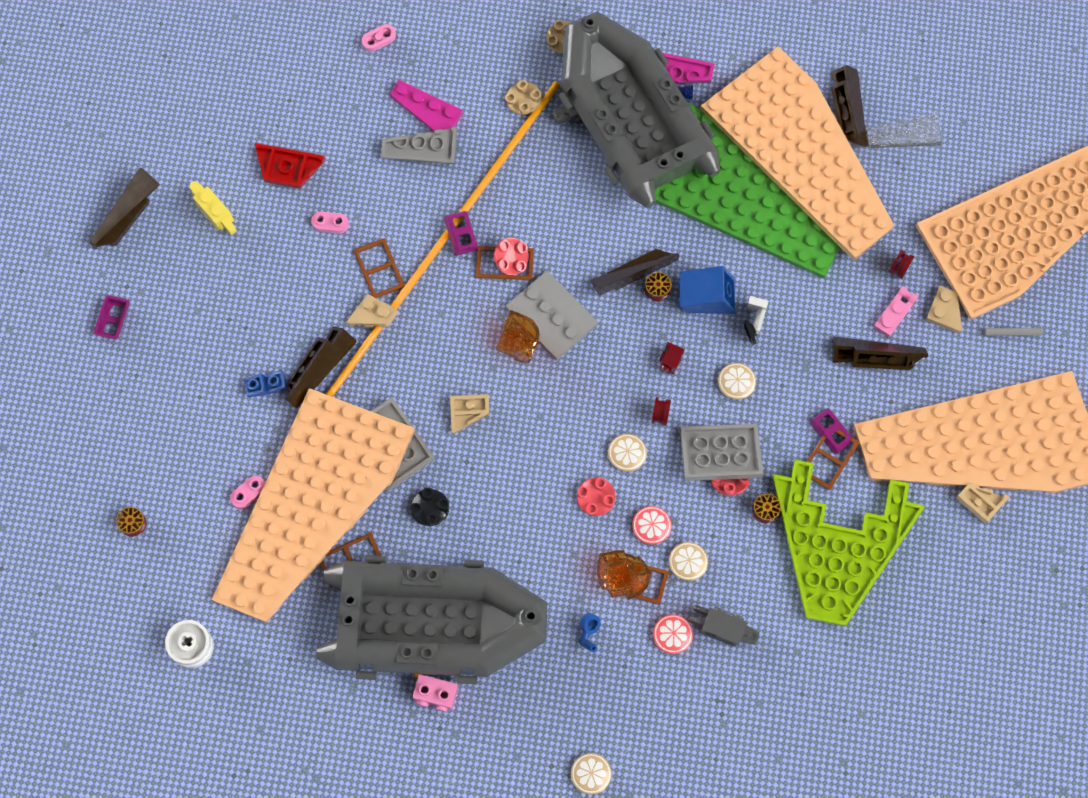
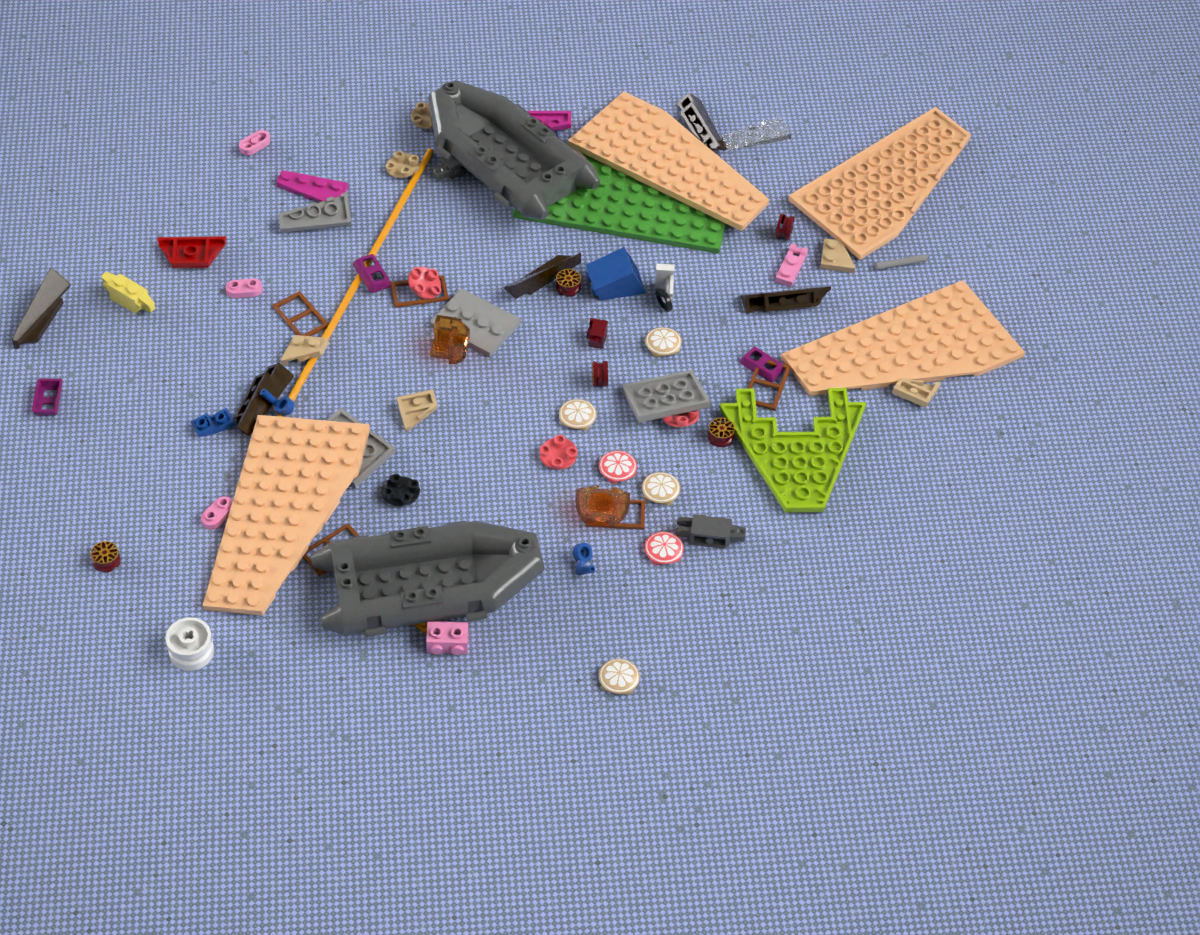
camera: 15 degrees left, 20 degrees down
(337, 382) = (283, 406): none -> blue plate

